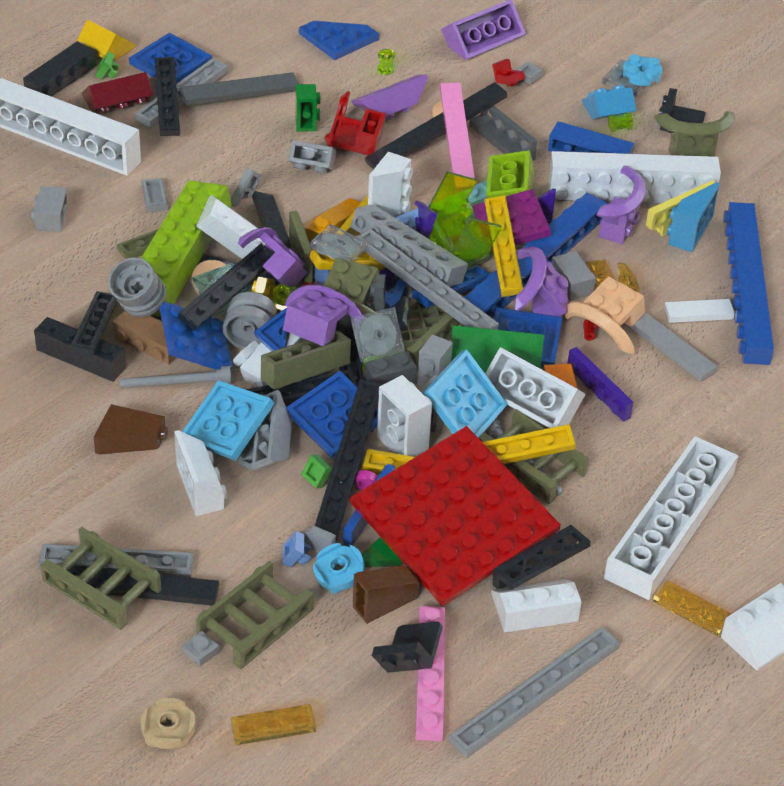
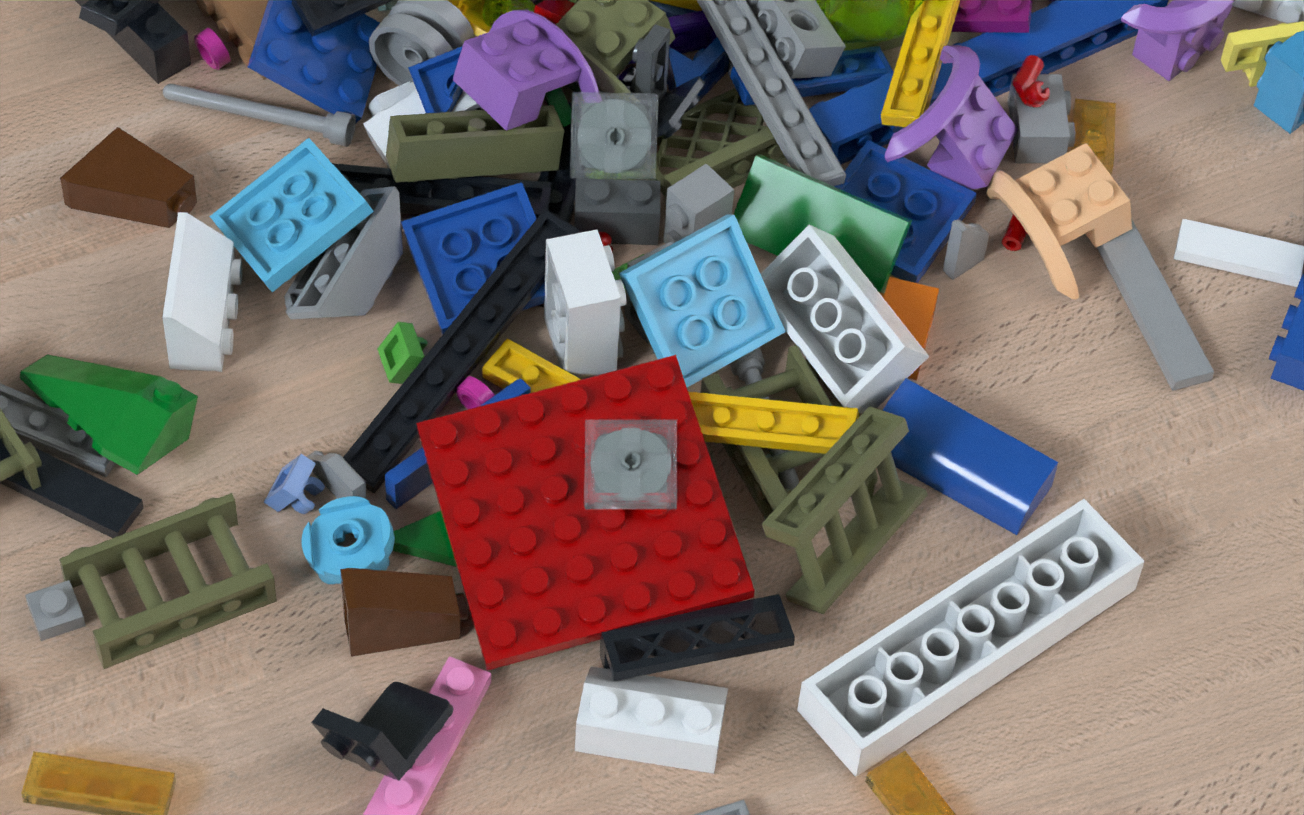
camera: 20 degrees right, 10 degrees up
(136, 355) = (211, 49): none -> dark pink tile
(195, 539) = (125, 412): none -> green wedge
(473, 481) = (630, 464): none -> clear piece
(564, 260) = (1026, 85): none -> red arm
(571, 340) = (965, 248): none -> light grey tile
(584, 474) = (824, 491): none -> olive fence
(600, 384) = (980, 348): dark purple plate -> none
(621, 438) = (969, 458): none -> blue brick
(627, 277) = (1131, 157): clear yellow slope -> none

